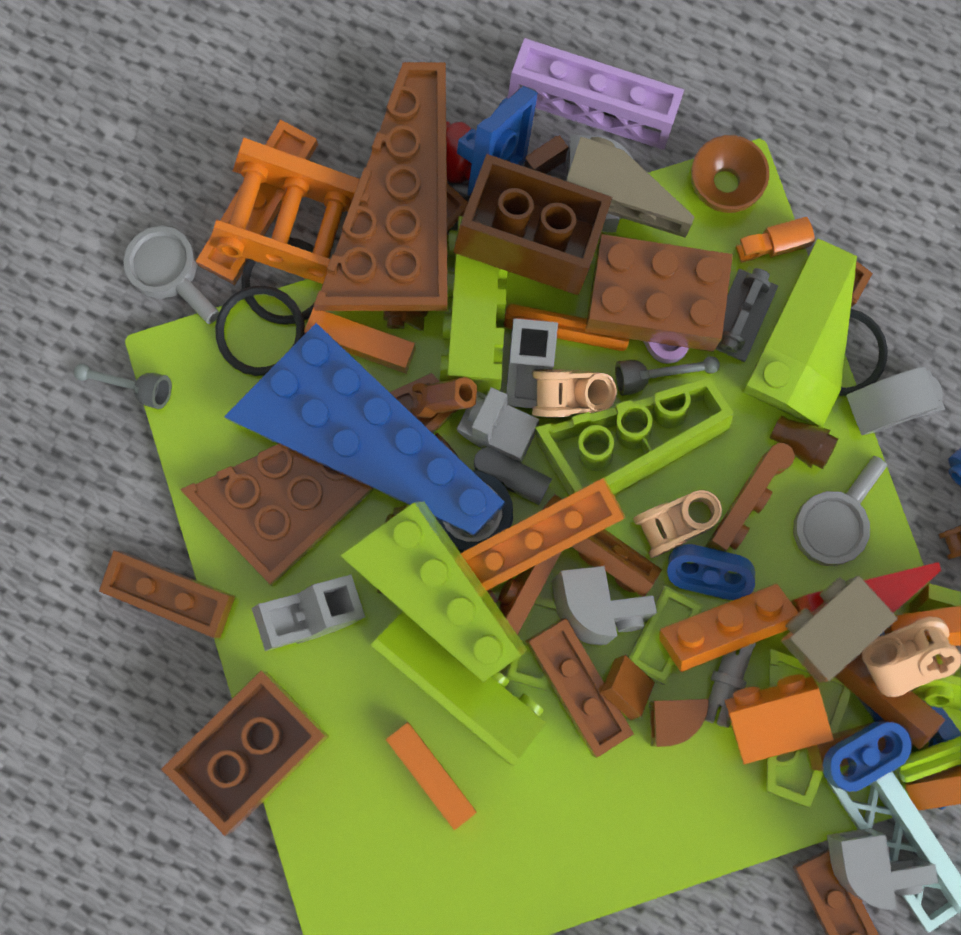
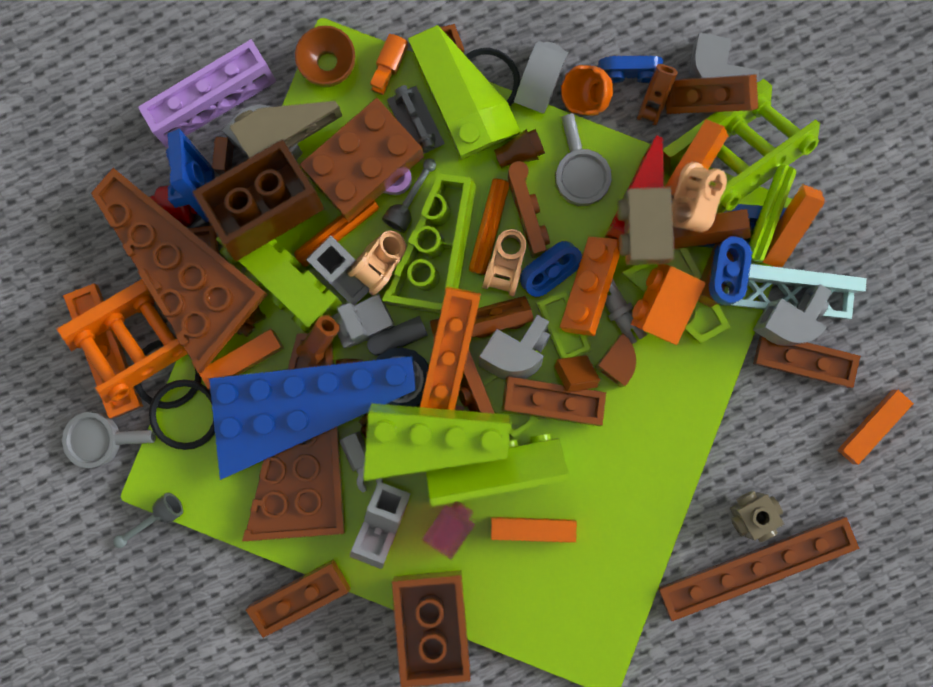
camera: 45 degrees left, 5 degrees up
(361, 525) = (355, 450): none -> light grey bar
(363, 685) = (450, 528): none -> clear pink brick
(701, 474) = (489, 226): none -> orange axle
(922, 459) = (586, 90): none -> orange hair

